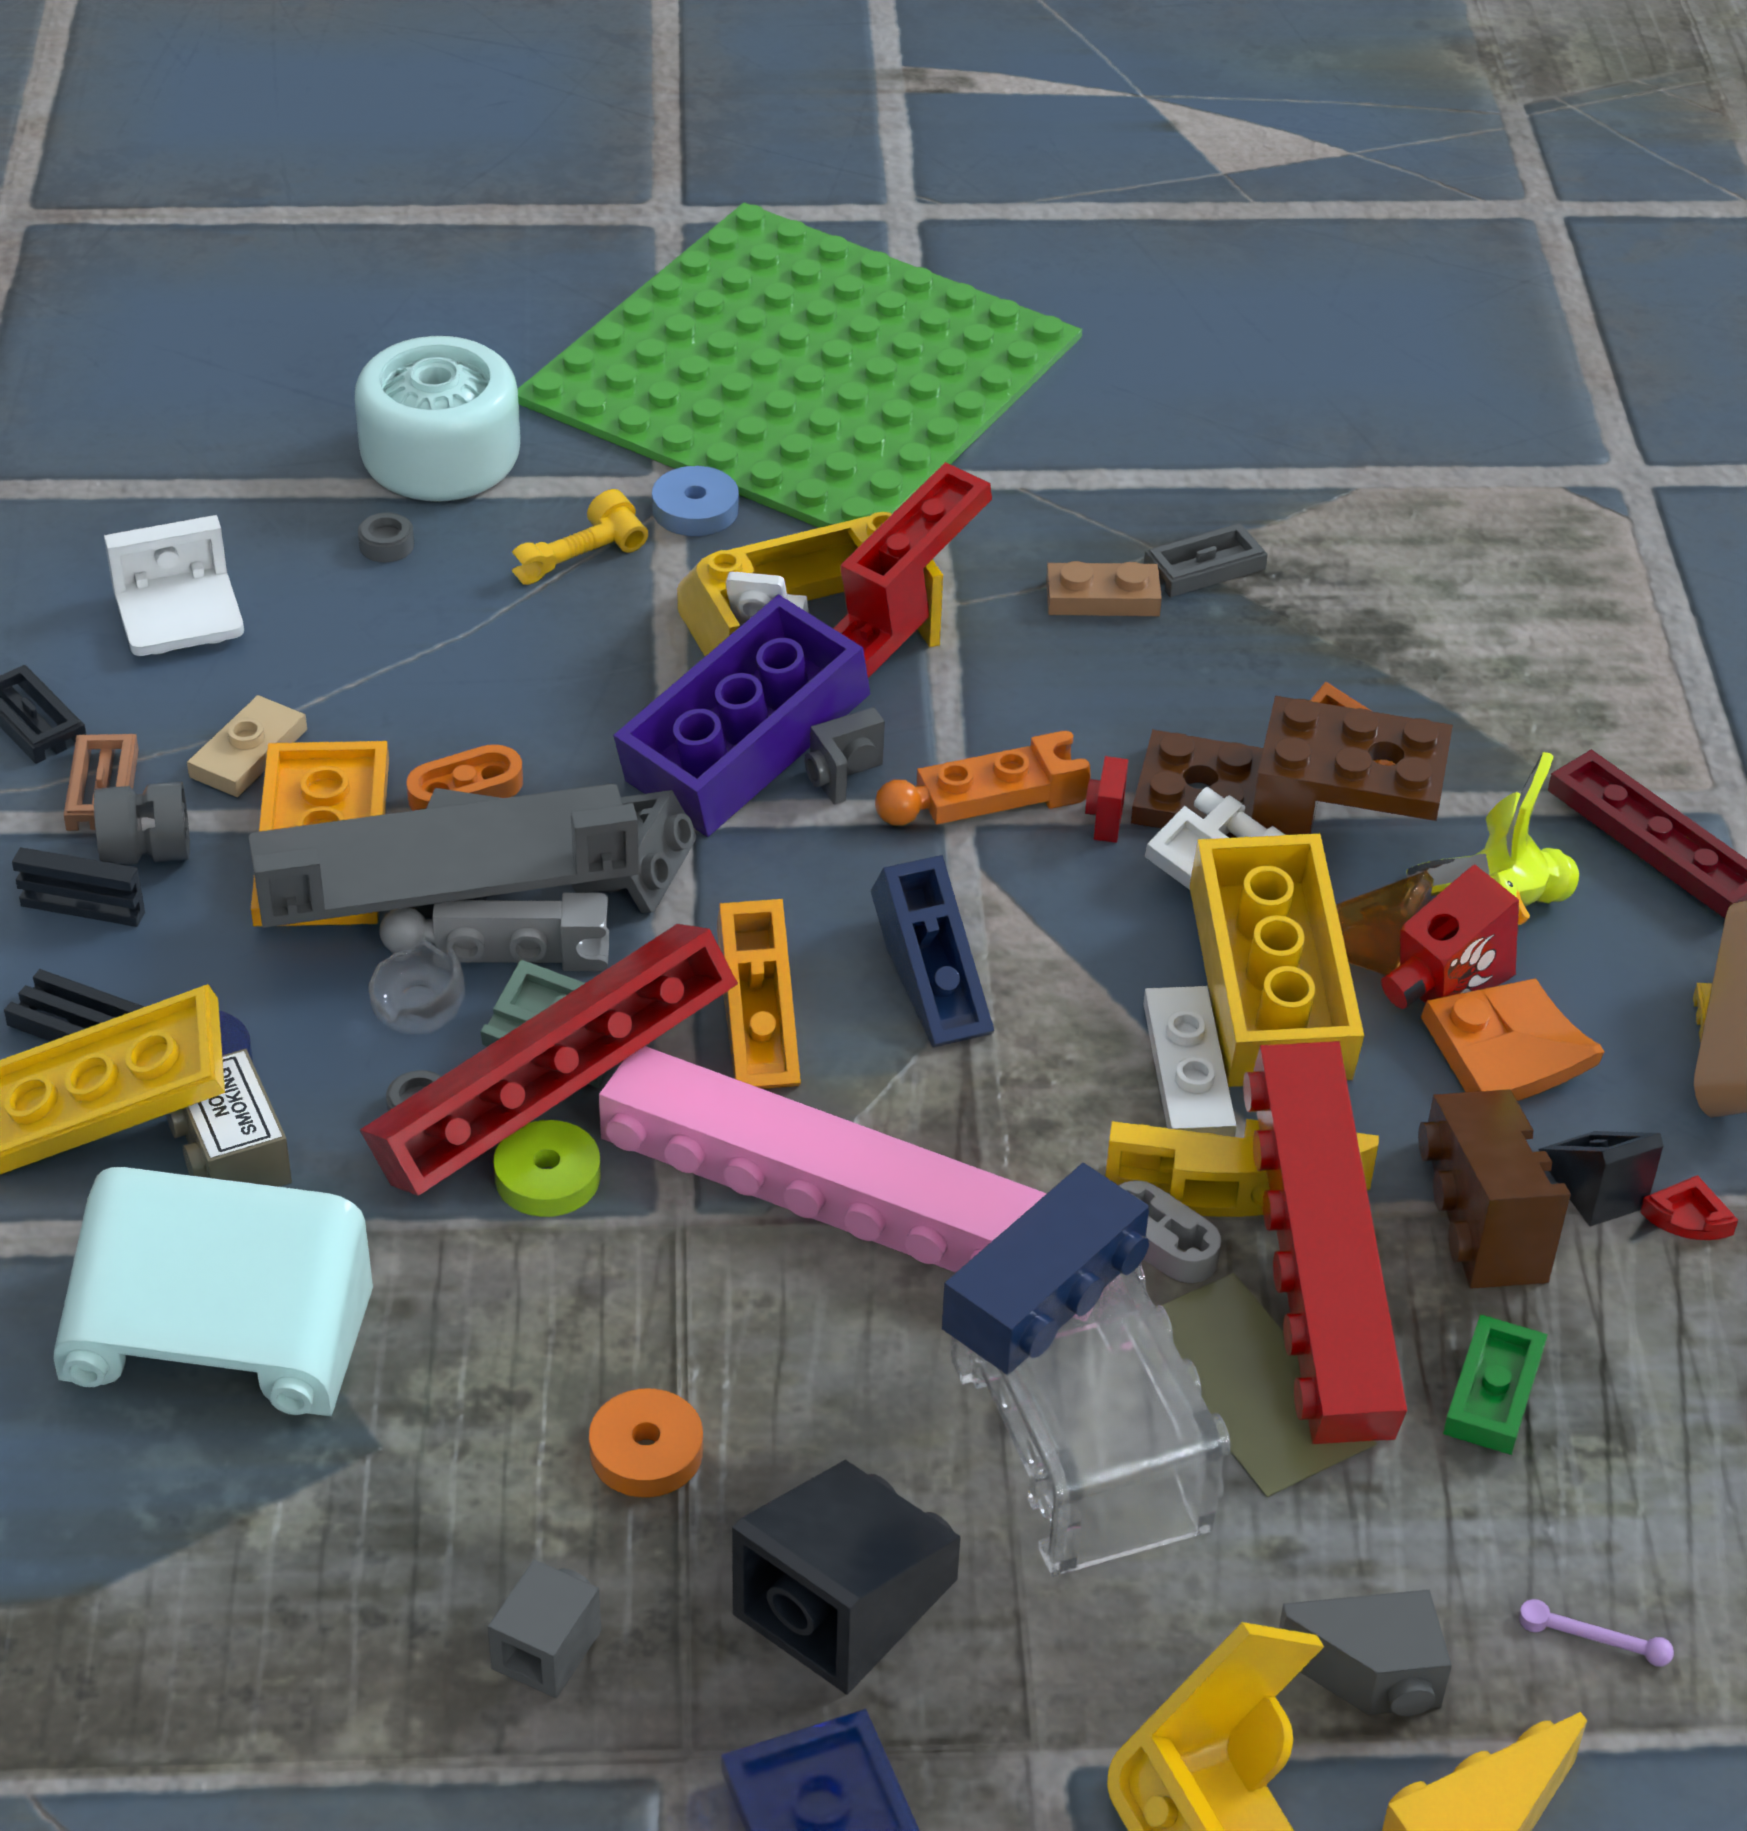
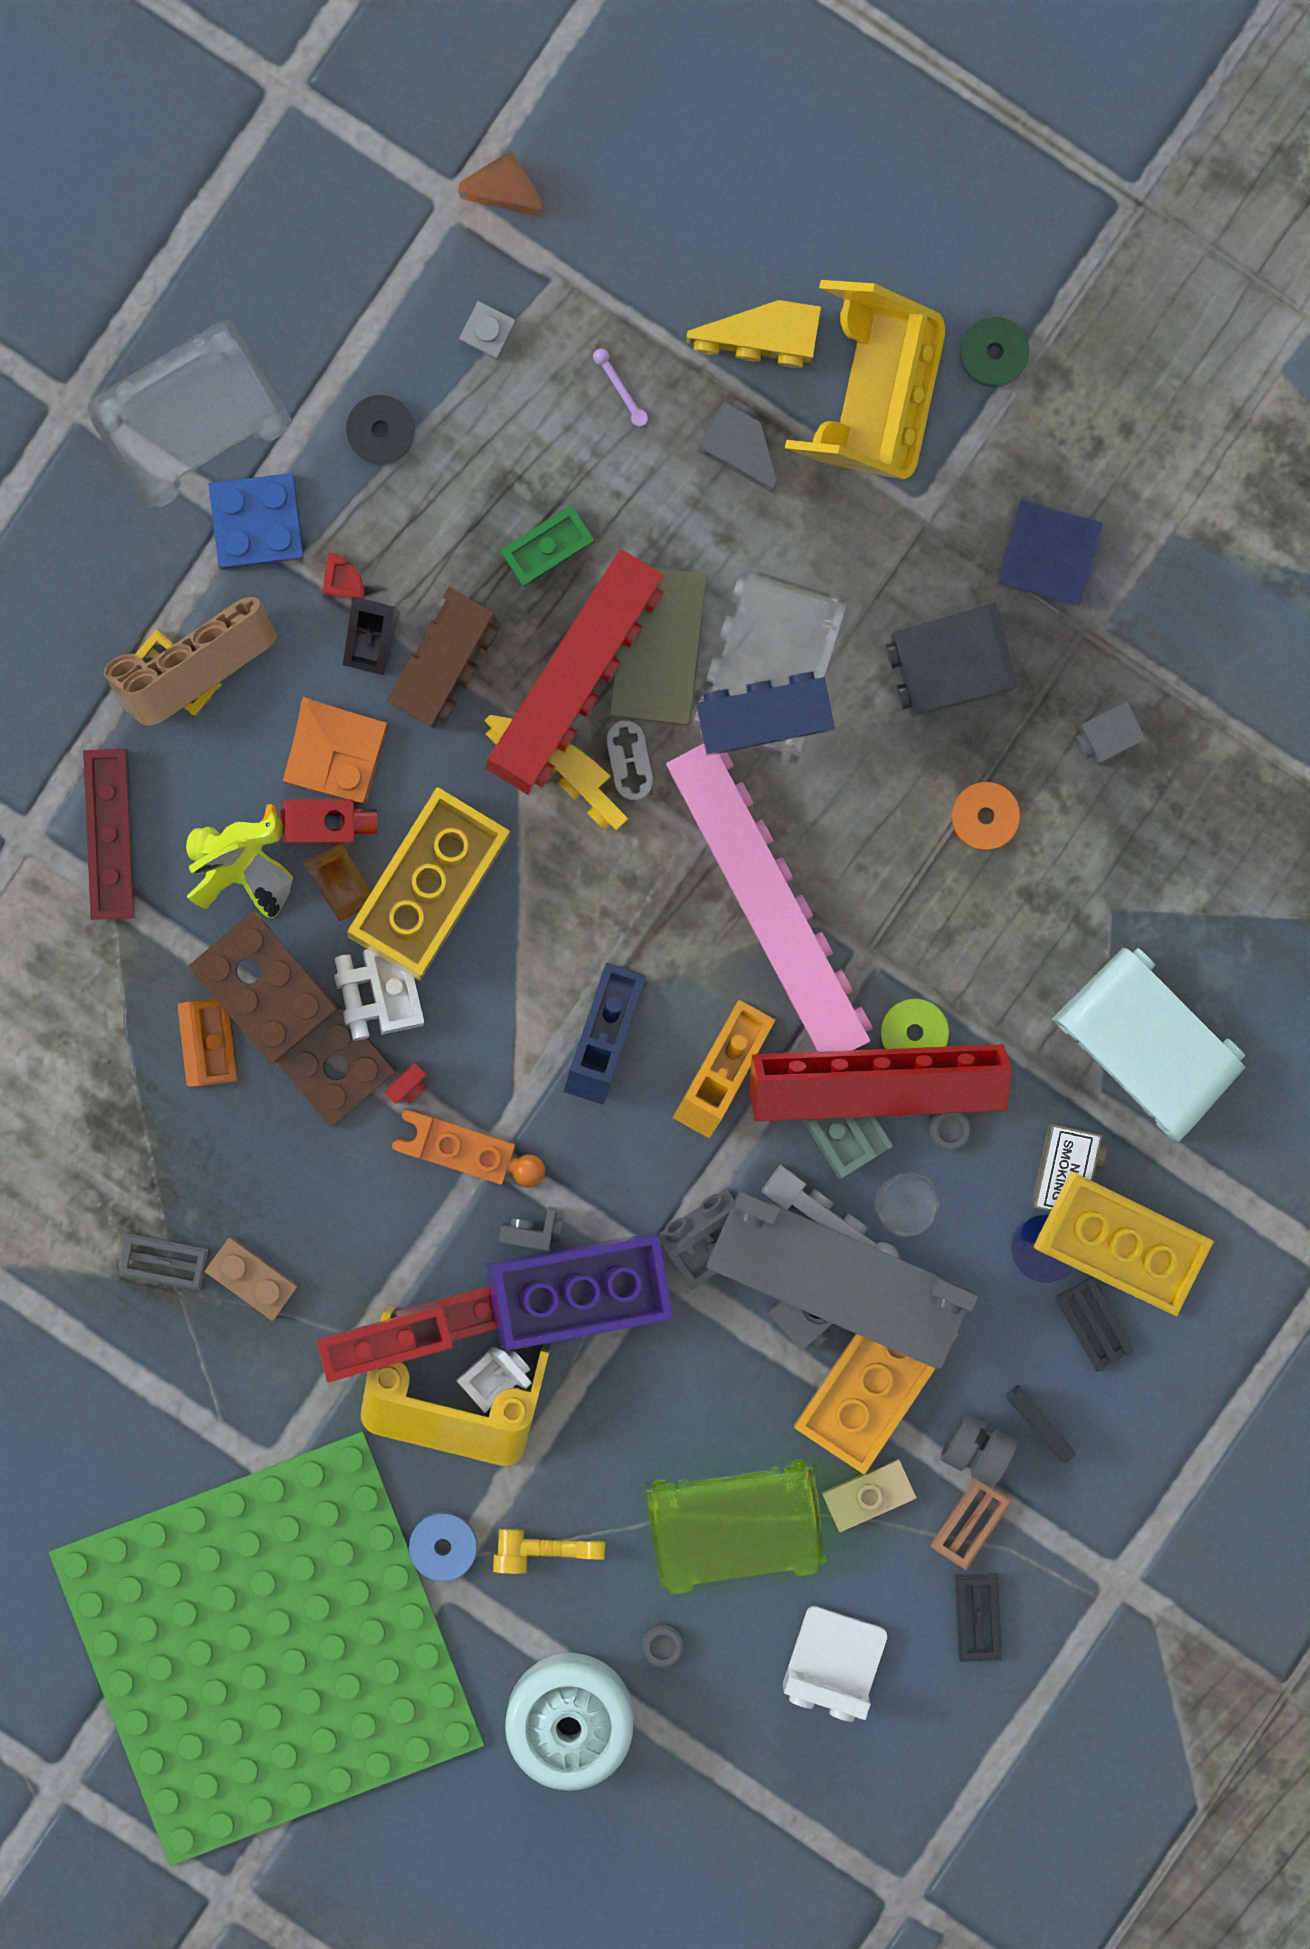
camera: 140 degrees left, 45 degrees up
(346, 647) = (736, 1526): none -> clear neon green windscreen
(481, 771) = (766, 1366): orange plate -> none
(1189, 1060) = (521, 862): white plate -> none

